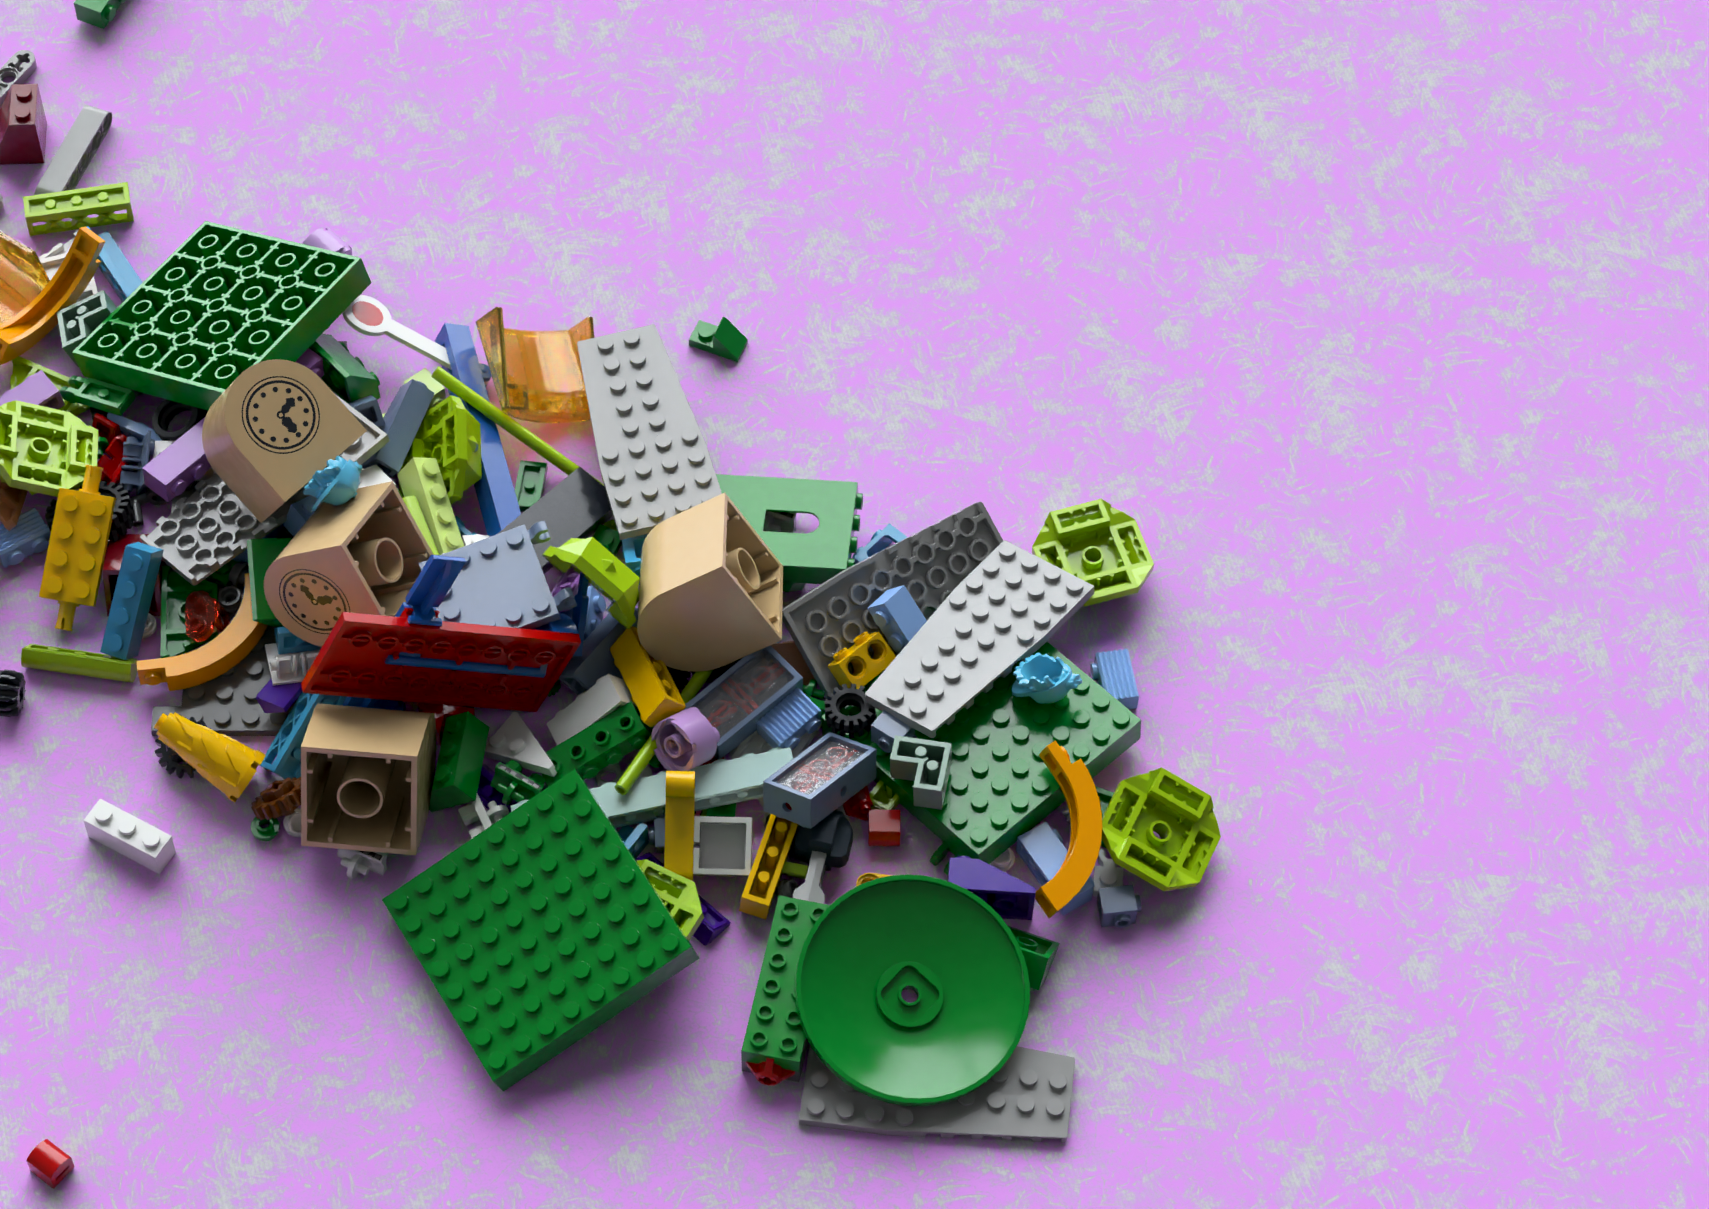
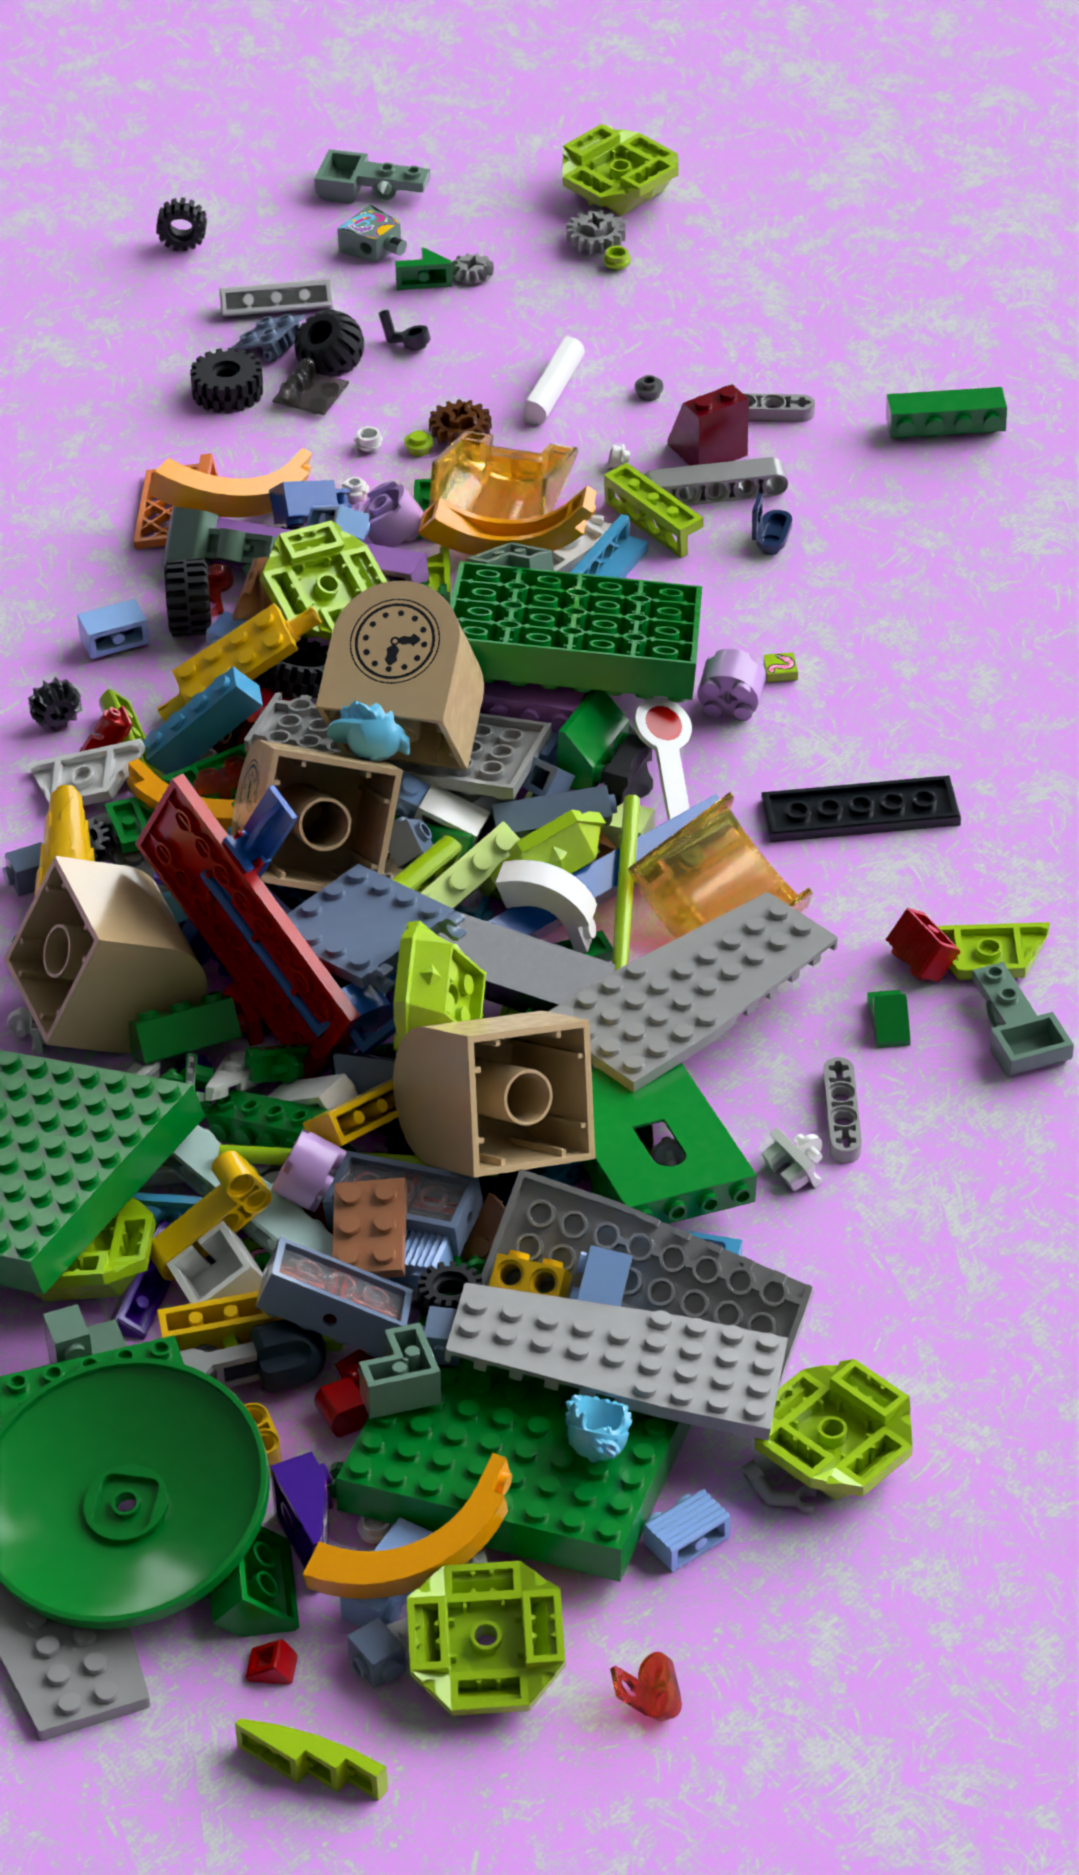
camera: 65 degrees right, 15 degrees down
(80, 673) = (112, 726): none -> red hinge
(105, 710) = (93, 772): none -> white wing
(156, 149) = (771, 529): none -> dark blue bracket
(183, 791) = (22, 868): none -> sand blue brick
(199, 697) = (127, 821): none -> green wing
(310, 220) = (780, 667): none -> lime tile
(386, 367) = (628, 770): none -> black brick
(495, 251) = (860, 808): none -> black tile
(499, 467) = (553, 890): none -> white arch
(534, 716) = (276, 1063): none -> green hips
(673, 285) = (922, 945): none -> red brick
(694, 251) = (995, 943): none -> lime wing
(736, 964) = (71, 1338): none -> sand green brick
(767, 727) = (371, 1225): none -> nougat plate
(791, 406) = (842, 1109): none -> light grey beam
(801, 271) = (1019, 1036): none -> sand green plate
(810, 459) = (799, 1156): none -> white hips
(1082, 974) = (272, 1663): none -> red slope
(1089, 621) = (756, 1479): none -> light grey arm
(1179, 987) = (303, 1753): none -> lime slope
(1237, 761) = (655, 1688): none -> clear red bracket

